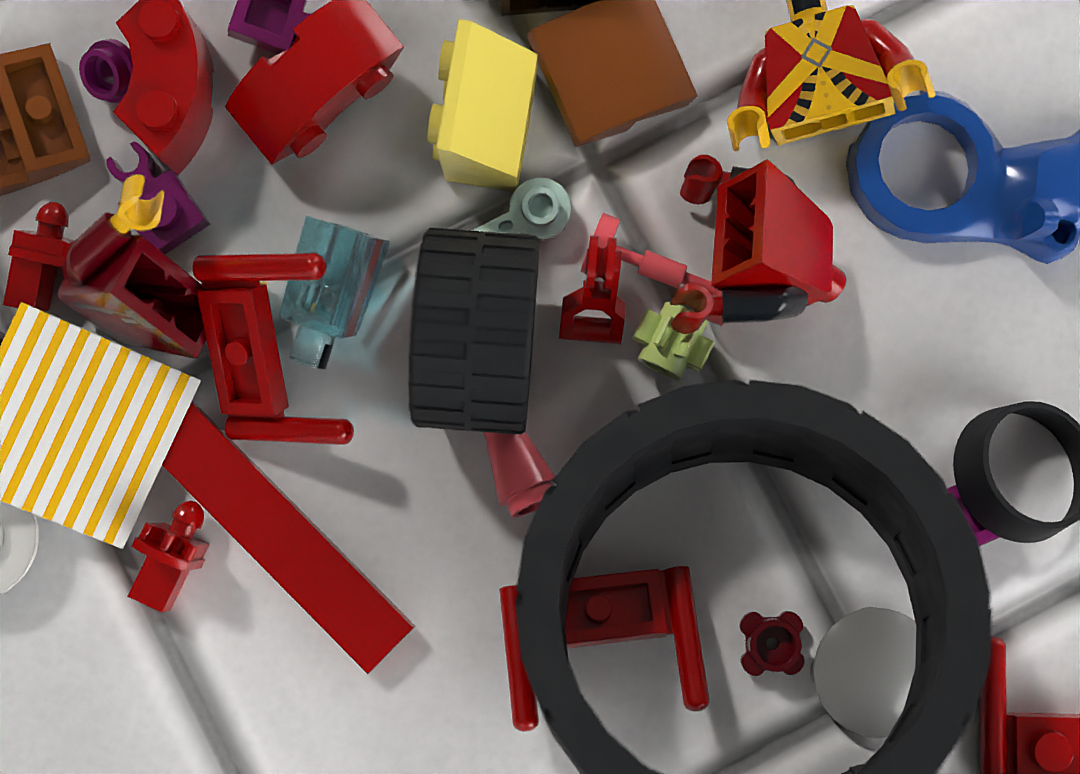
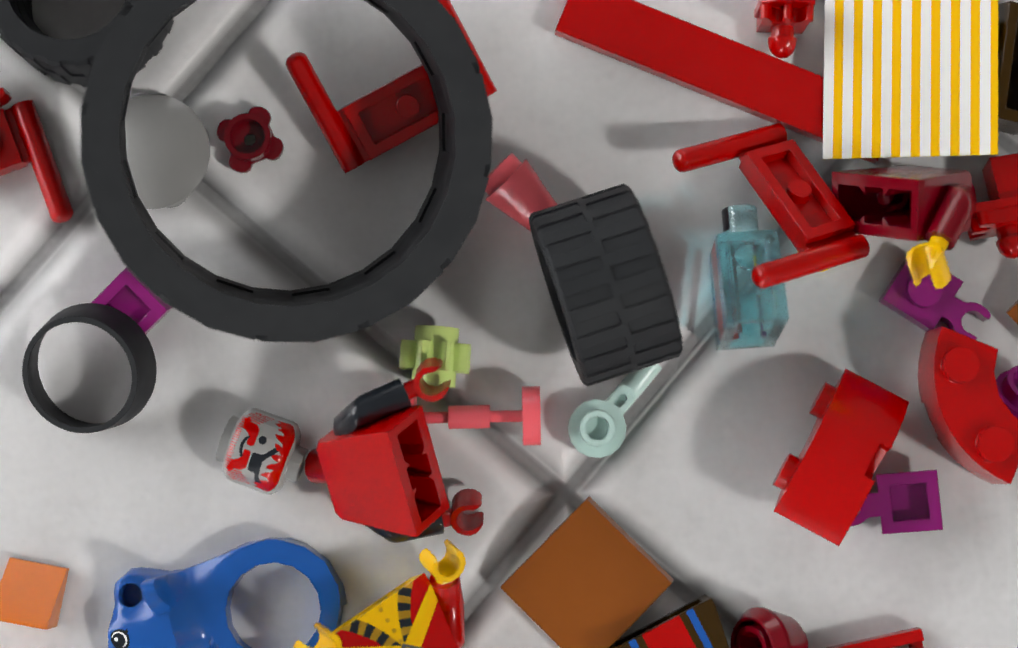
camera: 165 degrees right, 0 degrees up
(485, 108) = (681, 488): light yellow slope -> none
(596, 295) = (513, 359): red piece -> none
(881, 319) = (261, 451): none -> head

